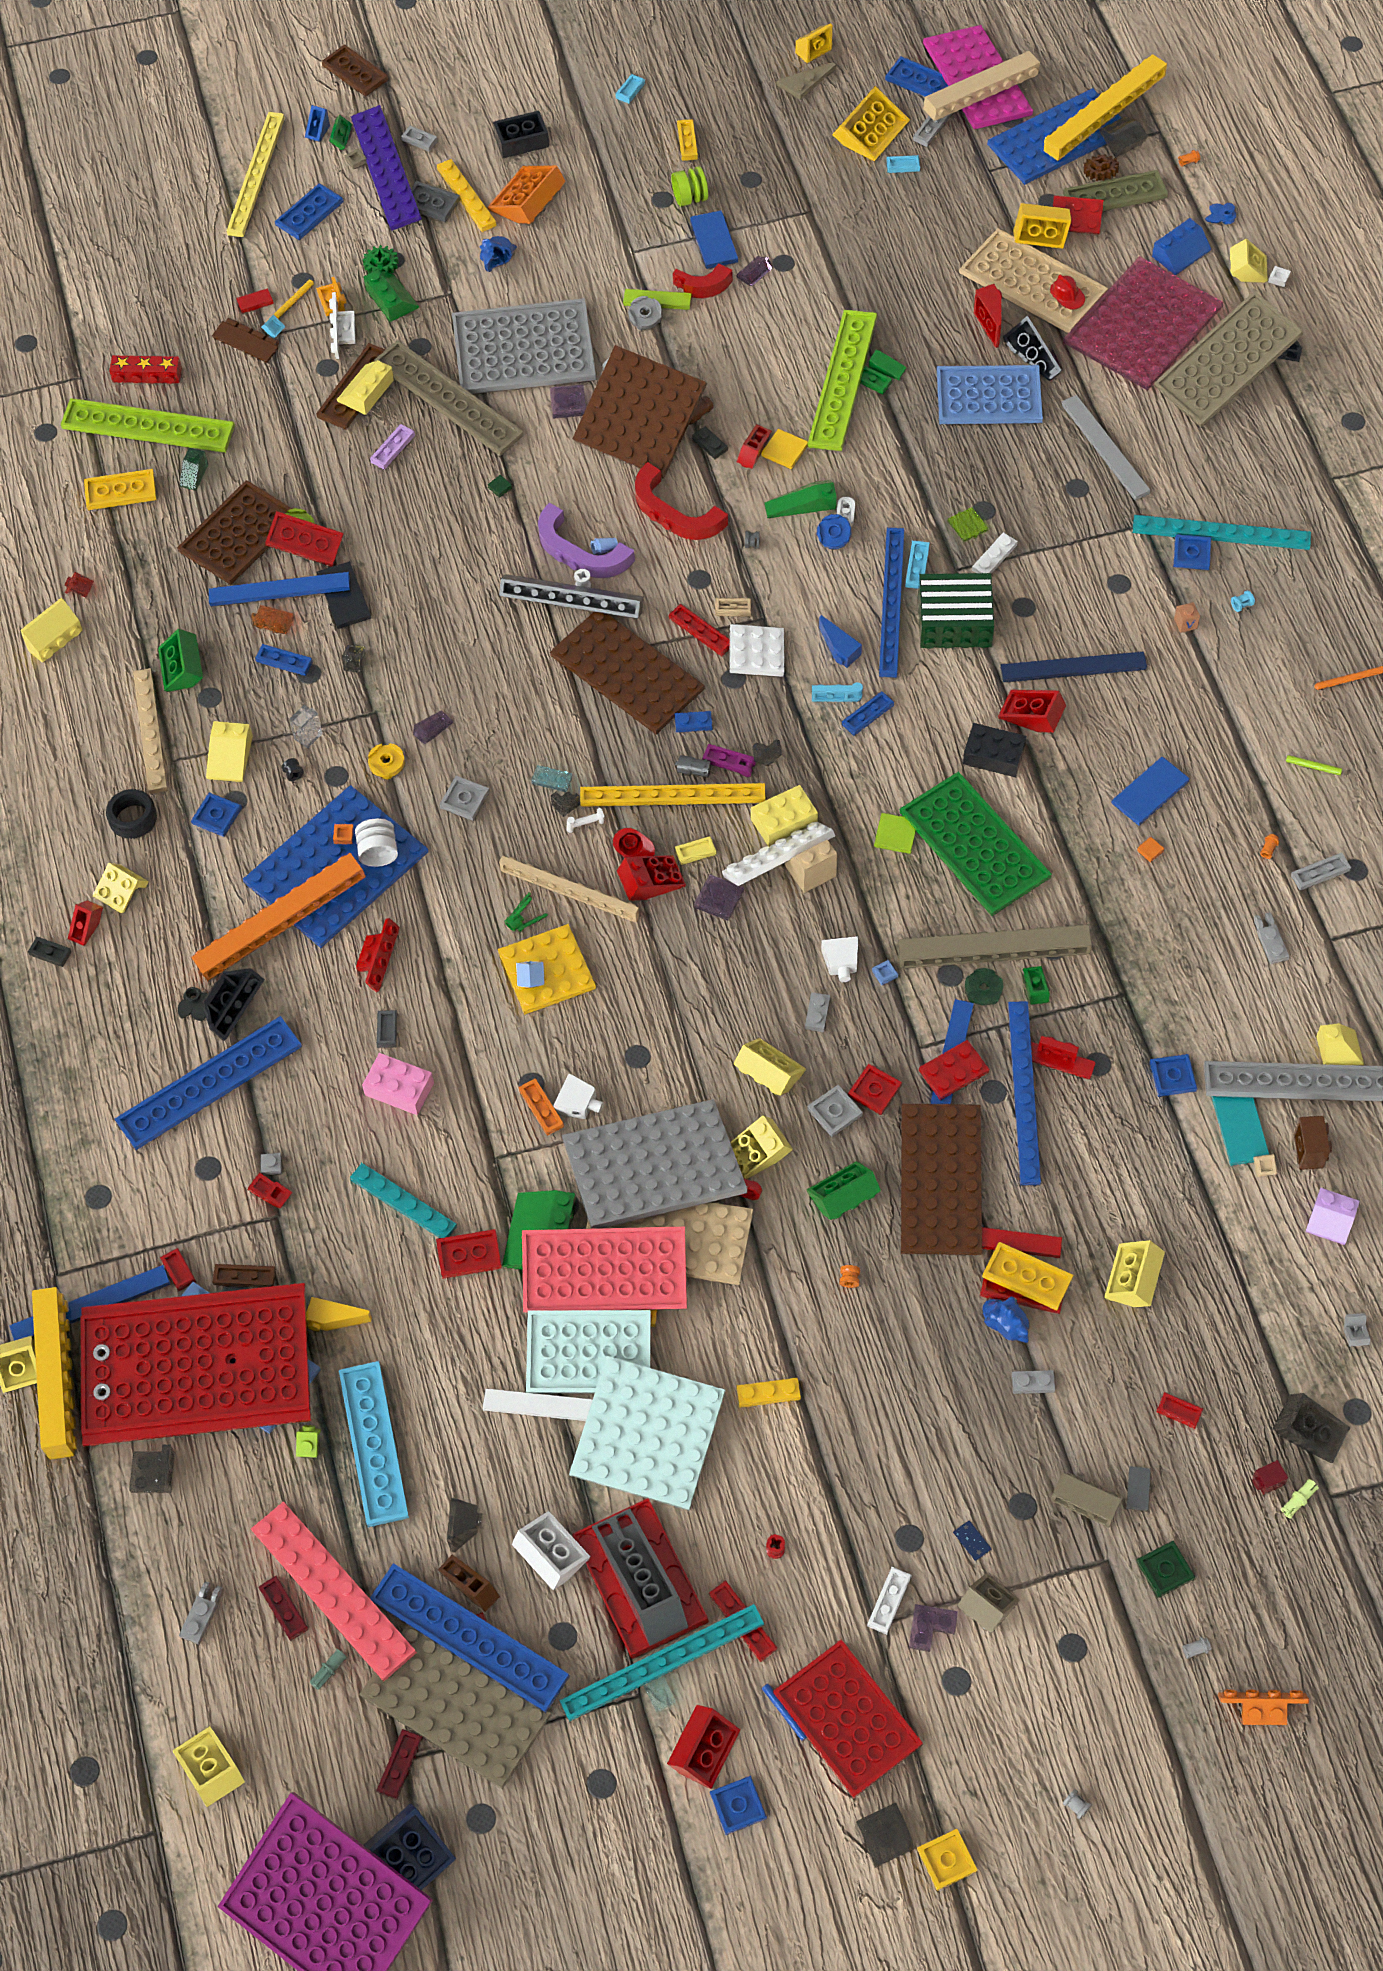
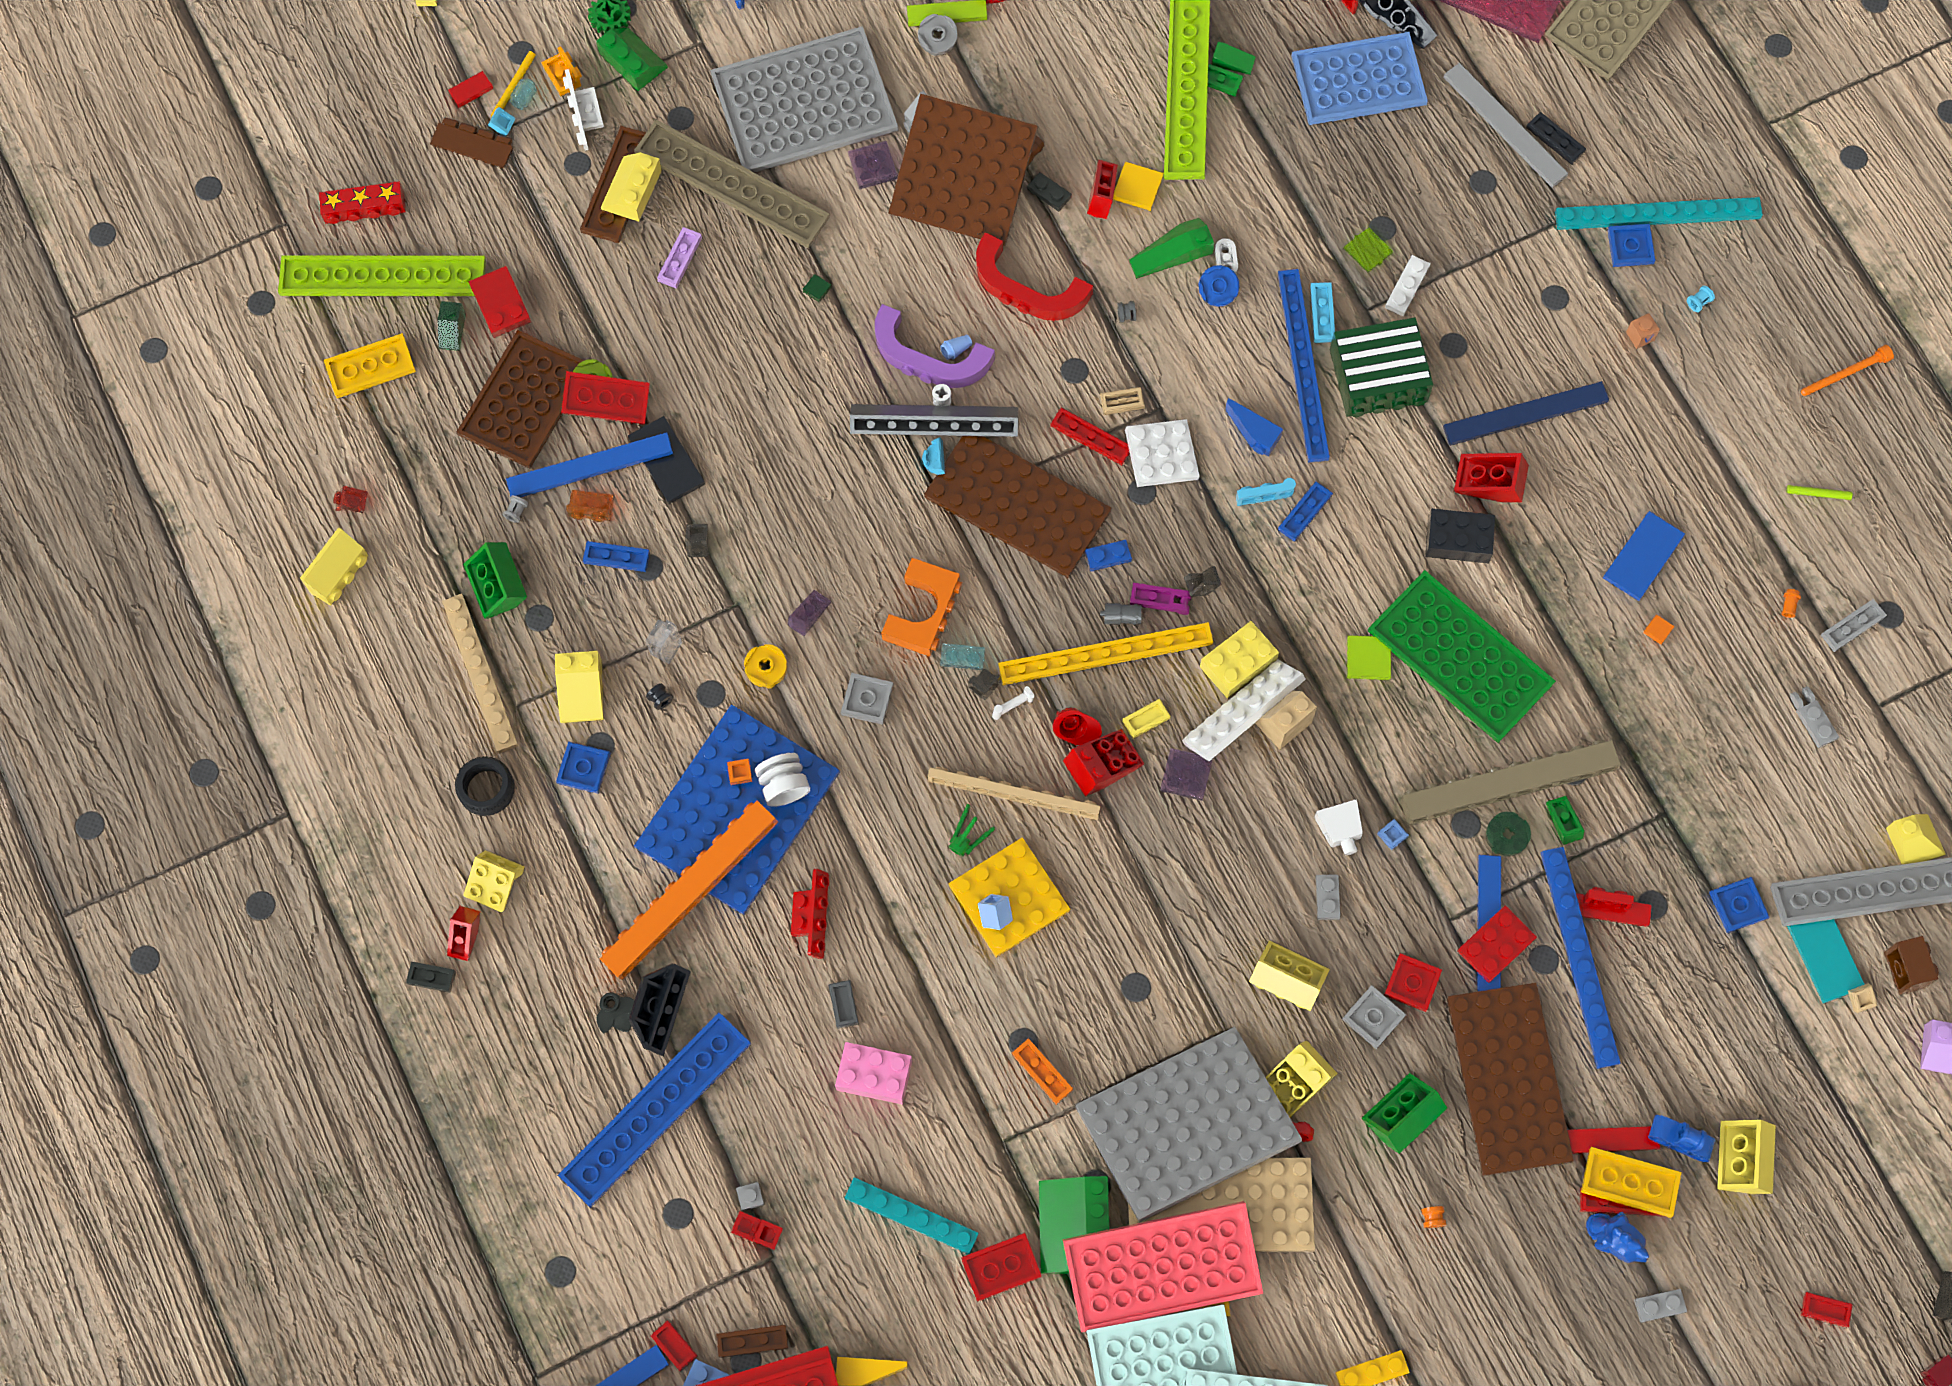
camera: 10 degrees left, 10 degrees up
(210, 612) = (519, 504): none -> light grey bush
(237, 457) = (499, 301): none -> red slope
(295, 309) = (523, 93): none -> clear light blue brick
(523, 757) = (923, 635): none -> orange arch
(565, 625) = (934, 457): none -> medium azure tile
(577, 1099) = (1081, 1055): white torso -> none
(1080, 1248) = (1682, 1138): none -> blue piece
(1146, 463) = (1556, 138): none -> black tile

